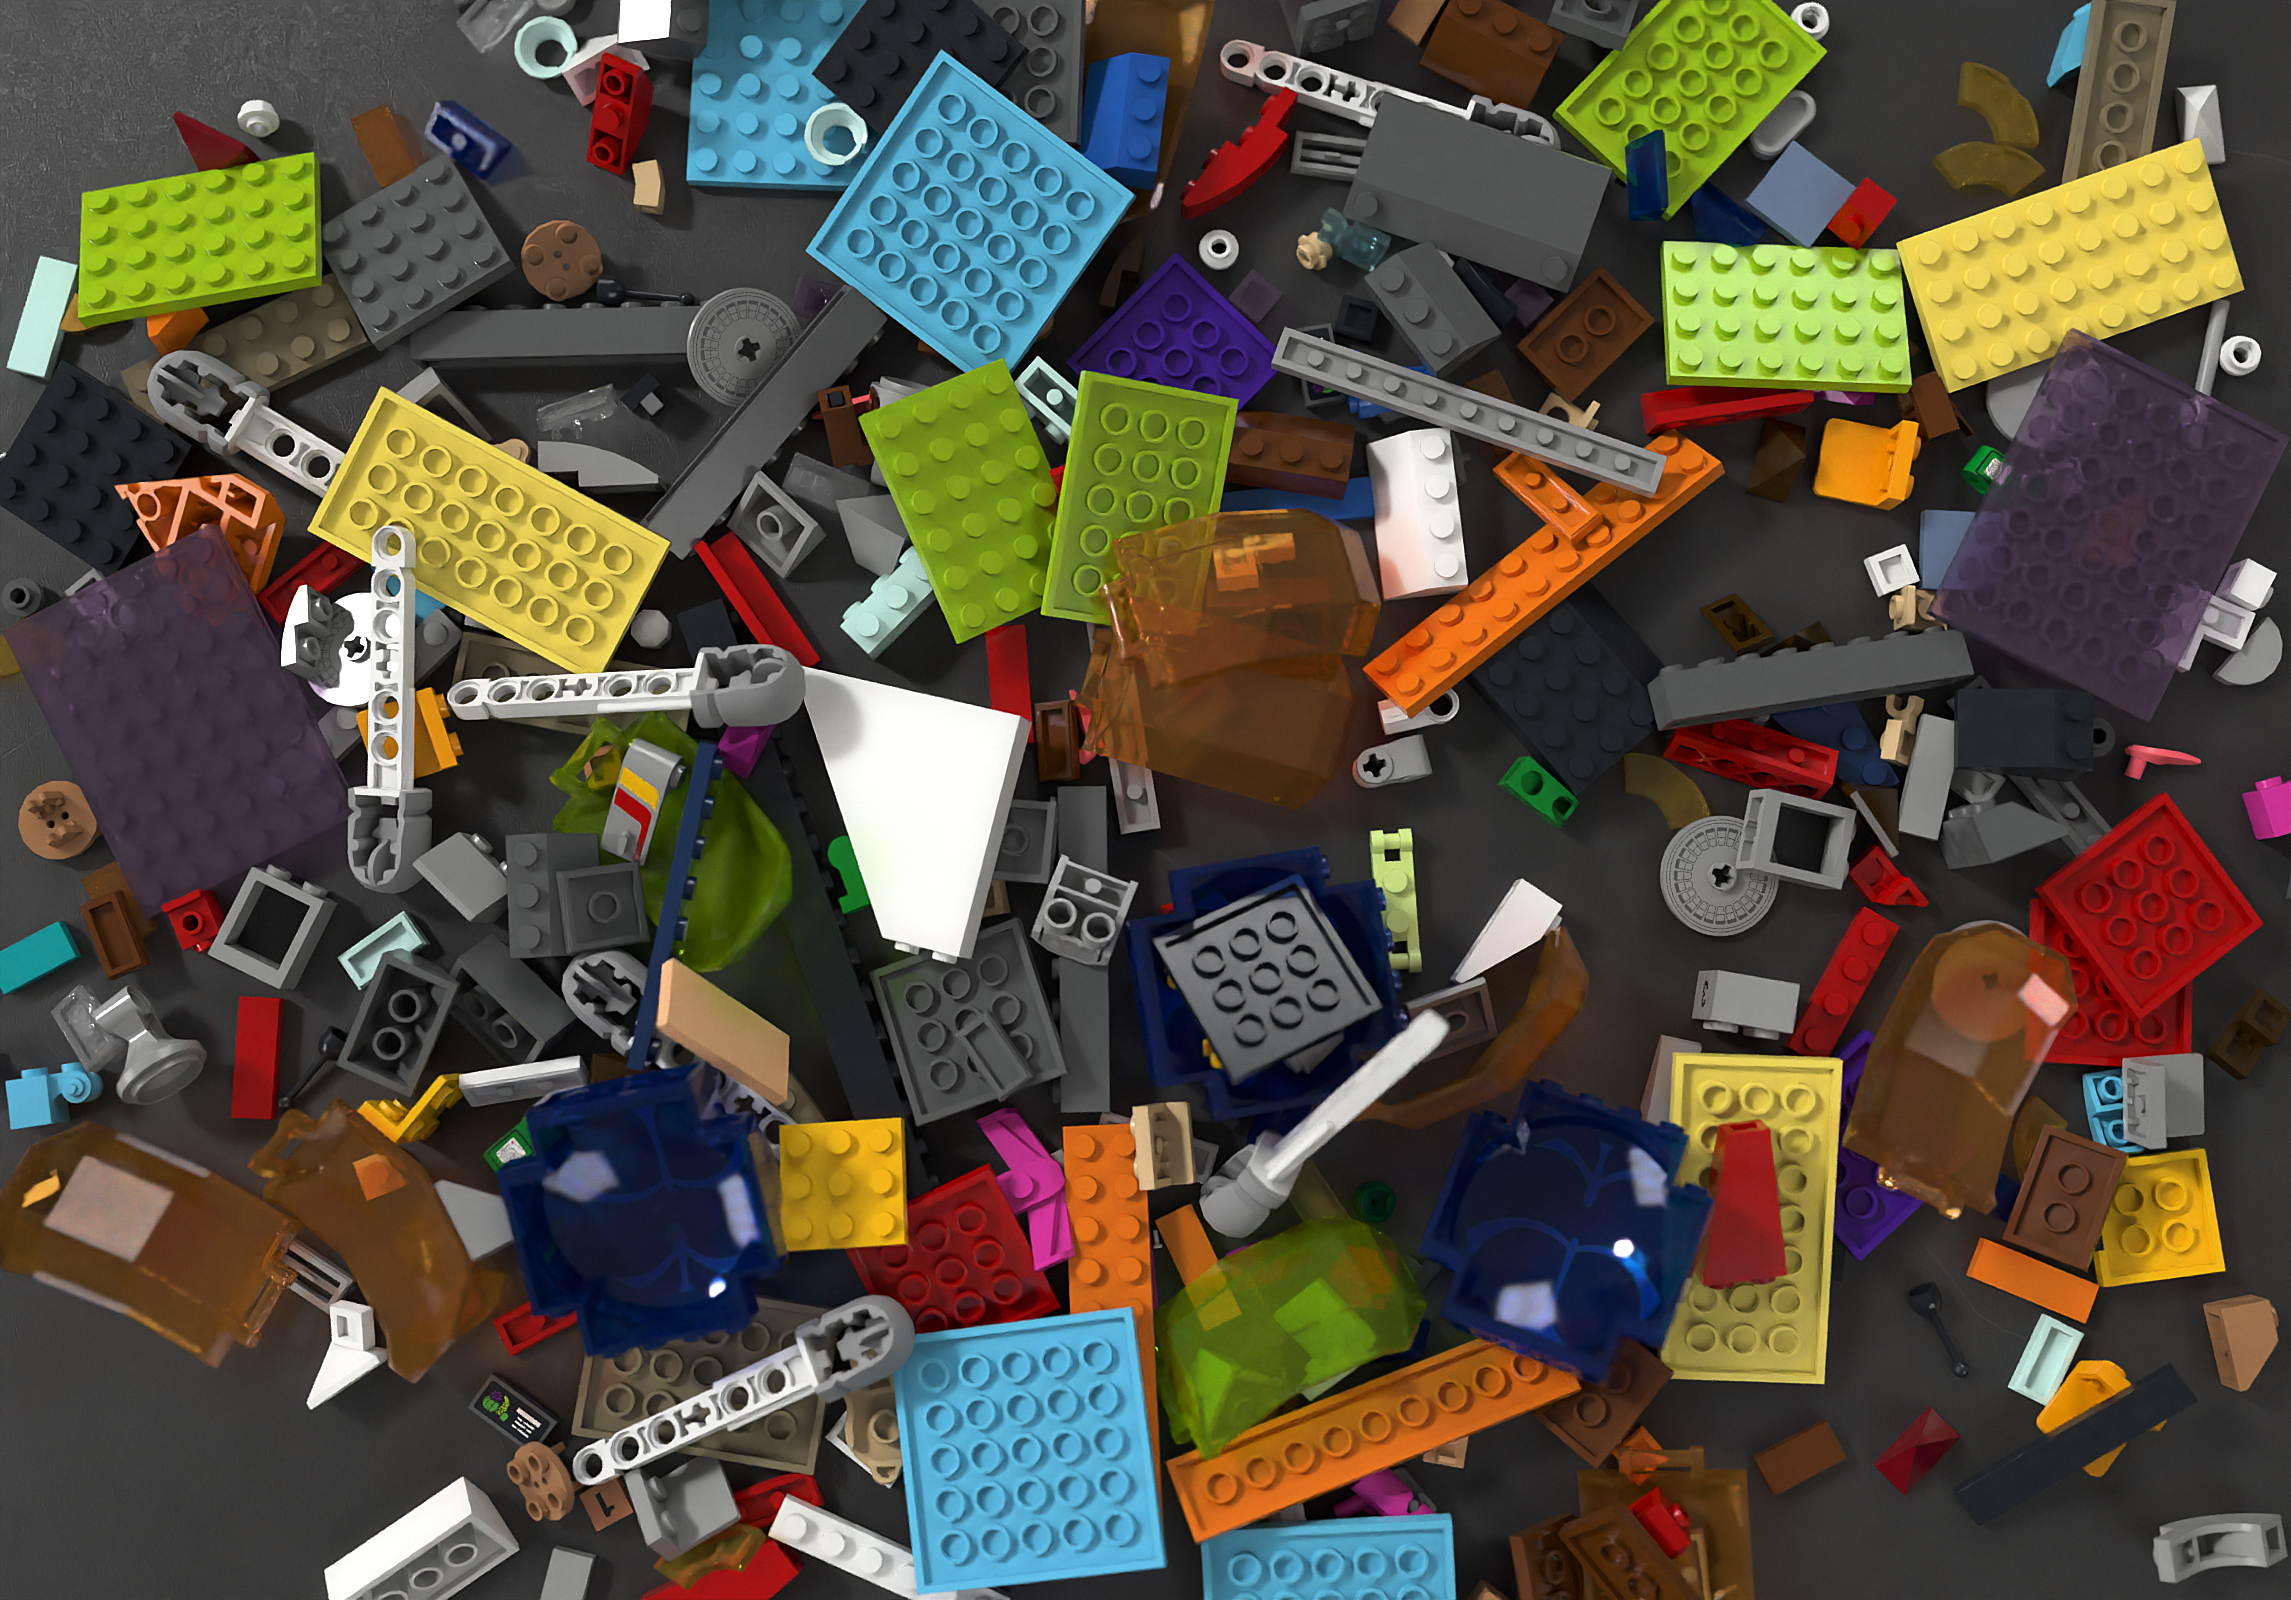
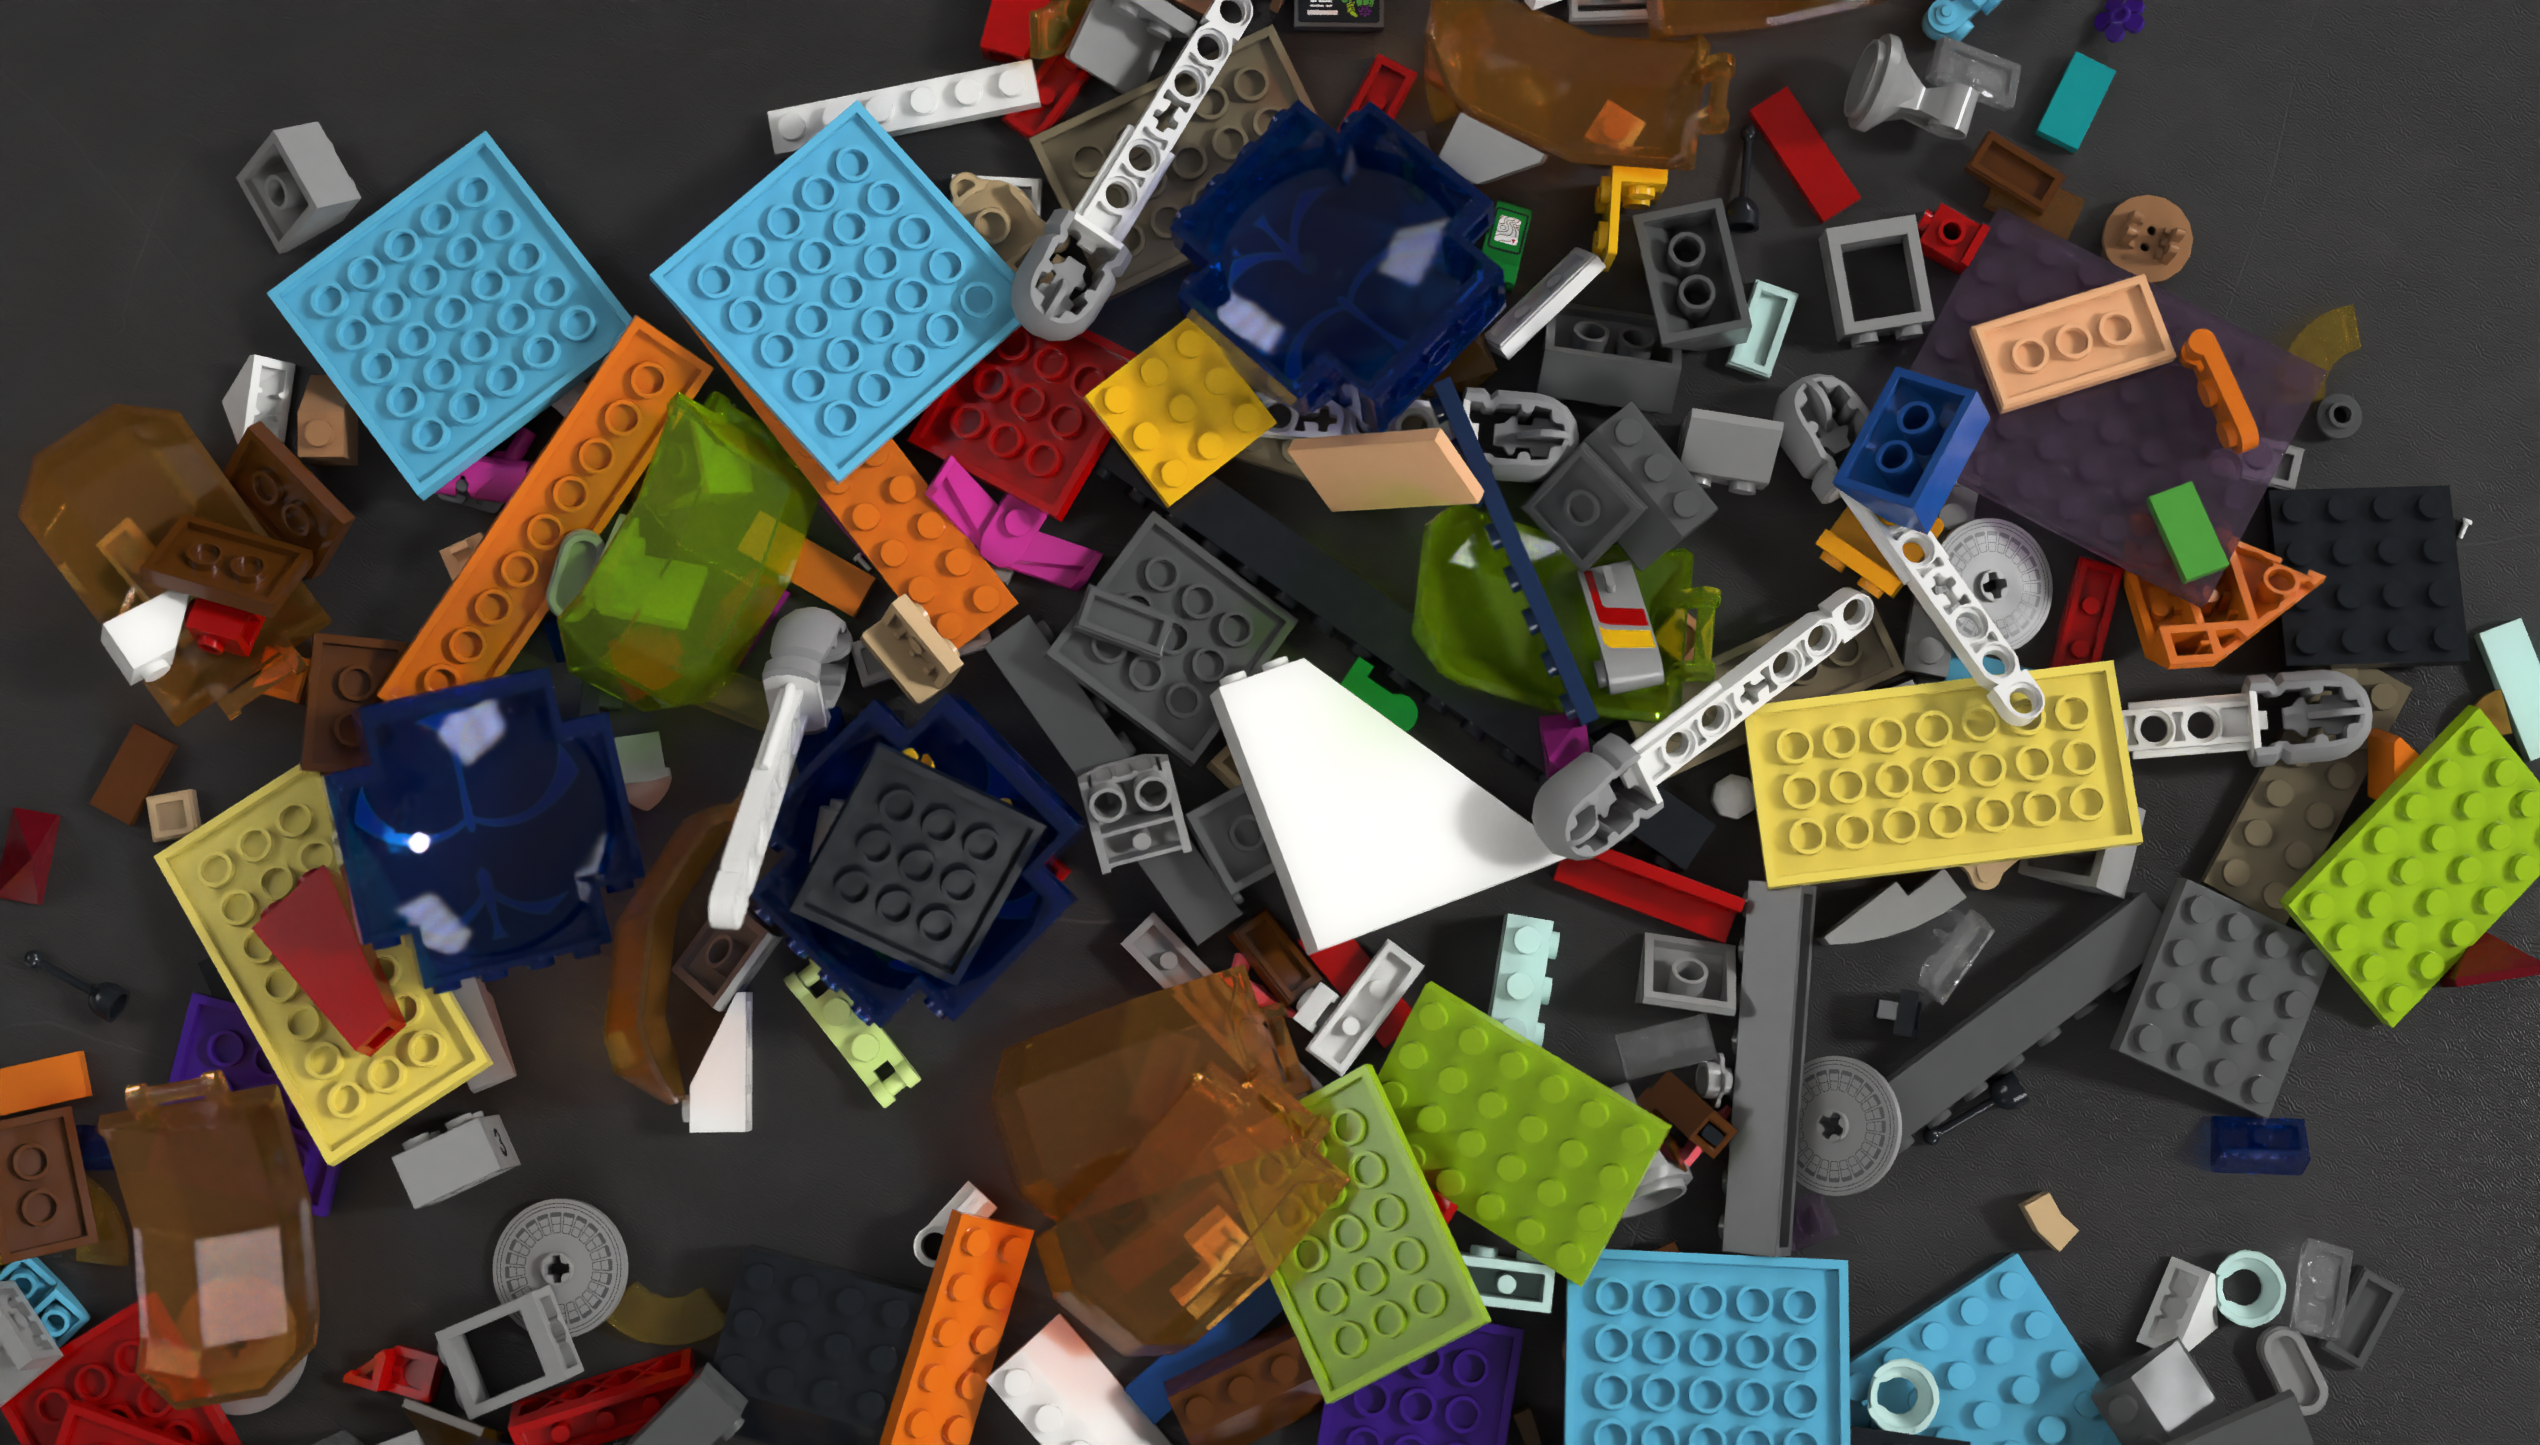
camera: 140 degrees right, 0 degrees up
(84, 666) = (2220, 391): none -> orange plate
(166, 778) = (2072, 344): none -> light nougat tile
(185, 582) = (2187, 532): none -> bright green tile
(258, 118) = (2469, 1022): white plate -> none
(306, 622) = (2056, 578): light grey slope -> none
(333, 780) = (1913, 448): none -> blue slope
(383, 145) = (2331, 1081): clear orange tile -> none
(546, 270) = (2083, 1068): medium nougat plate -> none
(619, 113) = (2126, 1268): red slope -> none
(809, 439) = (1714, 1080): none -> light grey plate
(875, 532) = (1588, 1036): light grey slope -> none
(1018, 661) = (1364, 1007): none -> white tile
(1052, 685) = (1316, 1007): none -> white plate
(1372, 1381) = (572, 568): none -> light grey tile
(1374, 1202) = (683, 735): dark green tile -> none
(1399, 762) = (938, 1163): light grey piece -> none
(1419, 1196) = (643, 769): none -> light grey tile
(1539, 791) = (785, 1228): green leg -> none
(1725, 1553) = (146, 636): none -> white slope
(1789, 1405) = (173, 815): none -> tan tile
(1842, 984) = (375, 1244): red plate -> none

